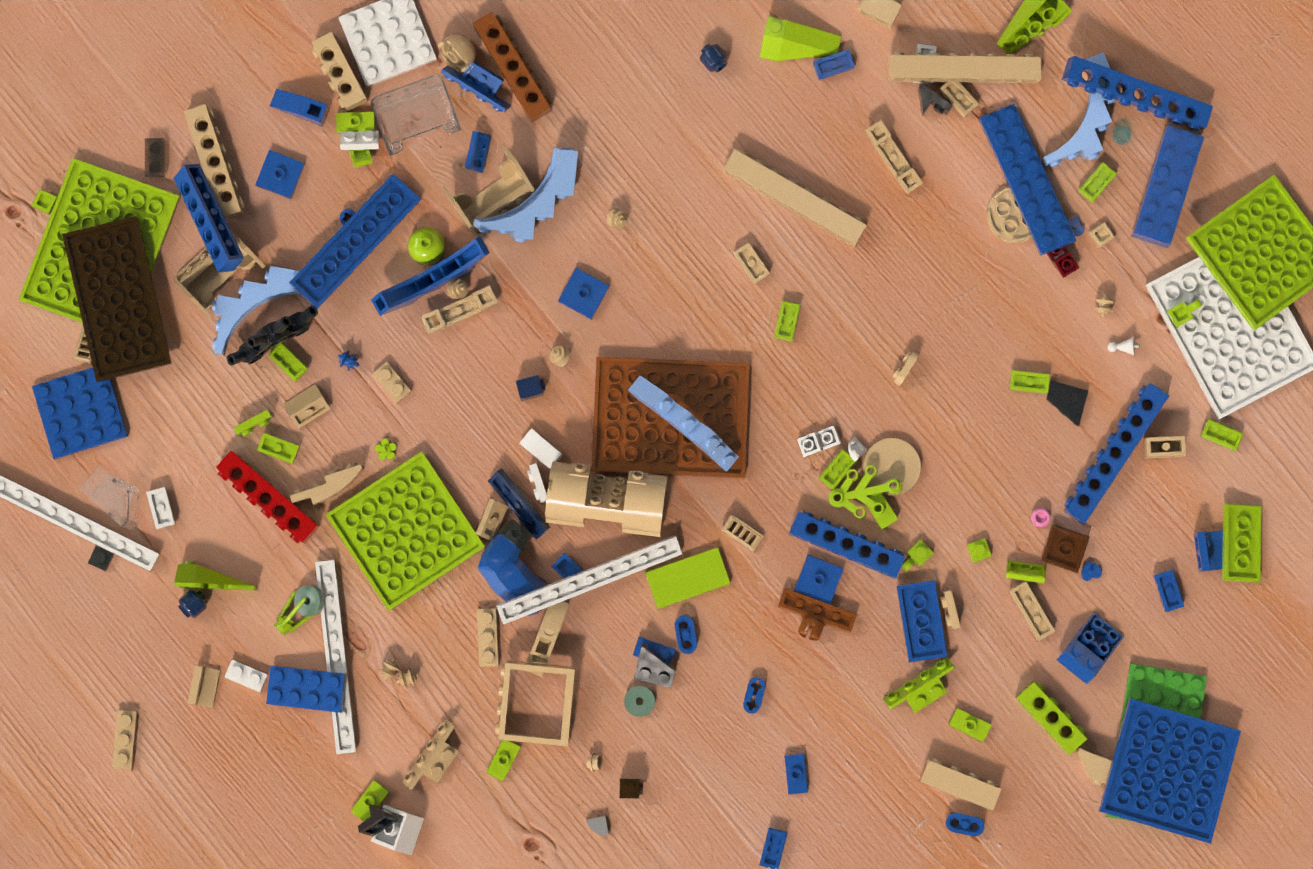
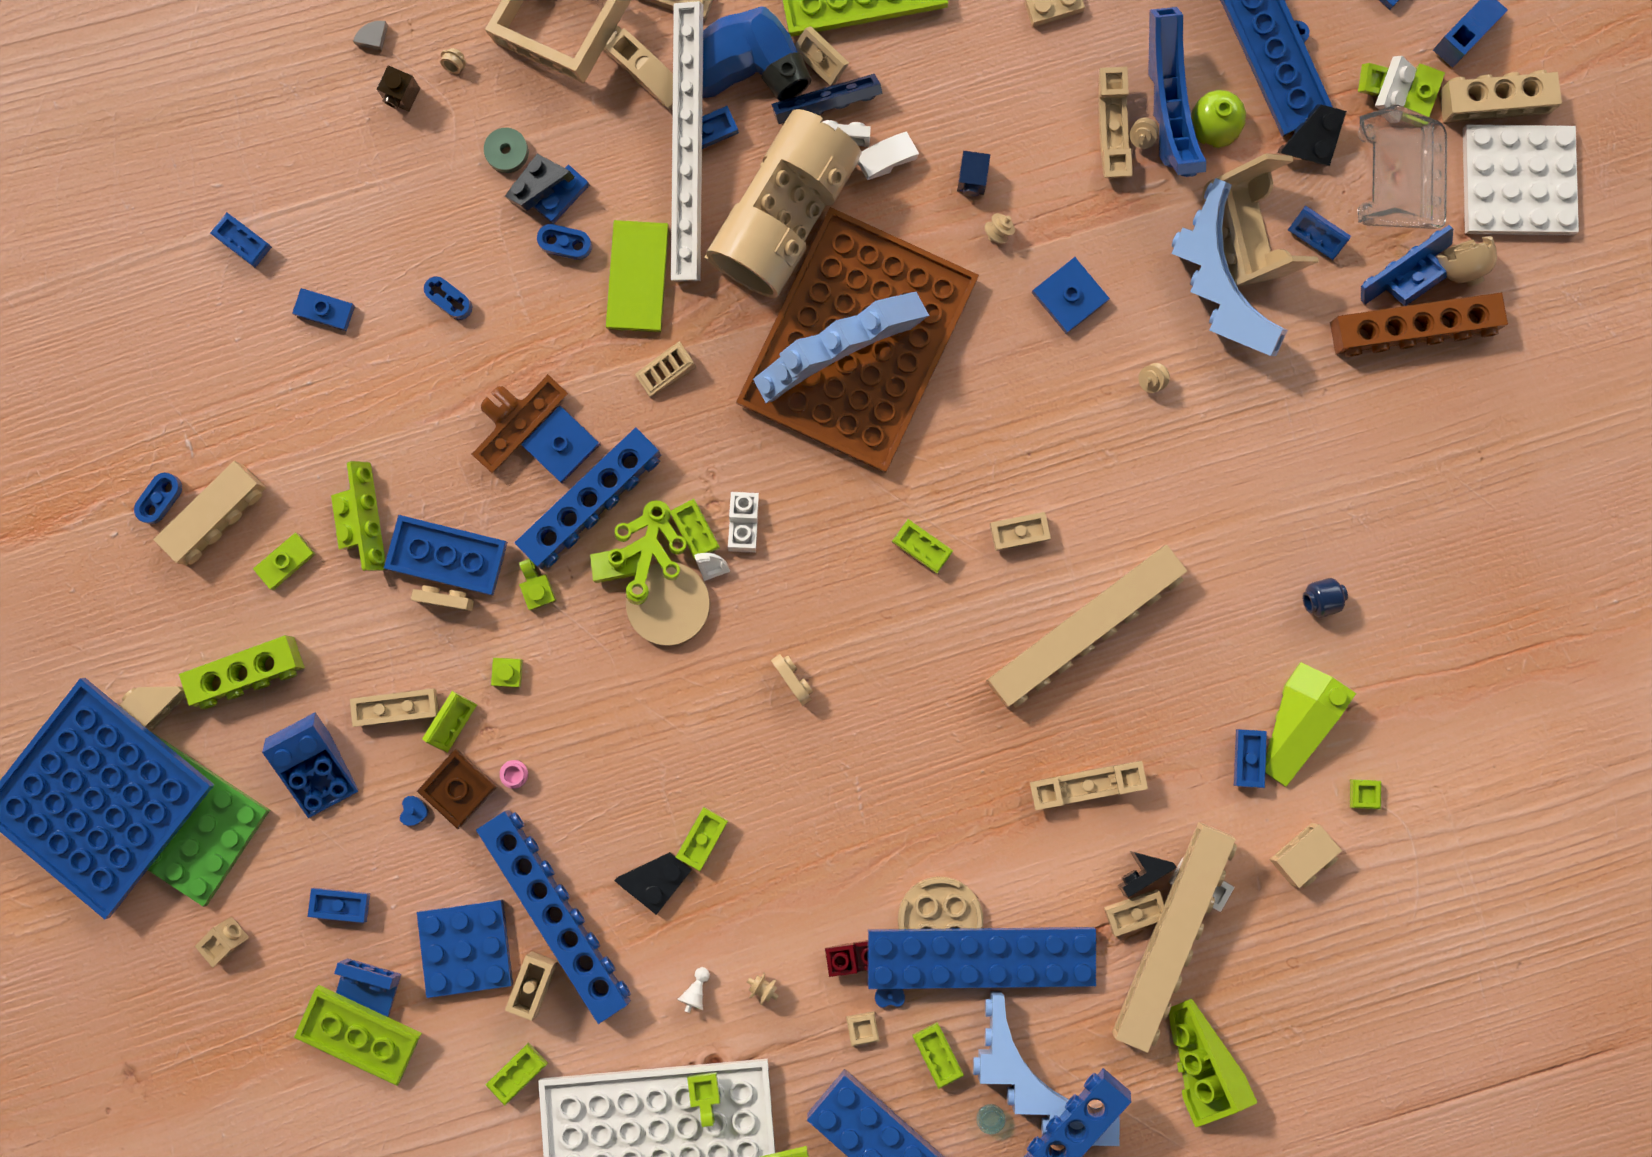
camera: 115 degrees right, 0 degrees up
(415, 178) = (1317, 136): none -> black wing
(1160, 501) = (464, 948): none -> blue plate
(1223, 654) = (221, 941): none -> tan bracket

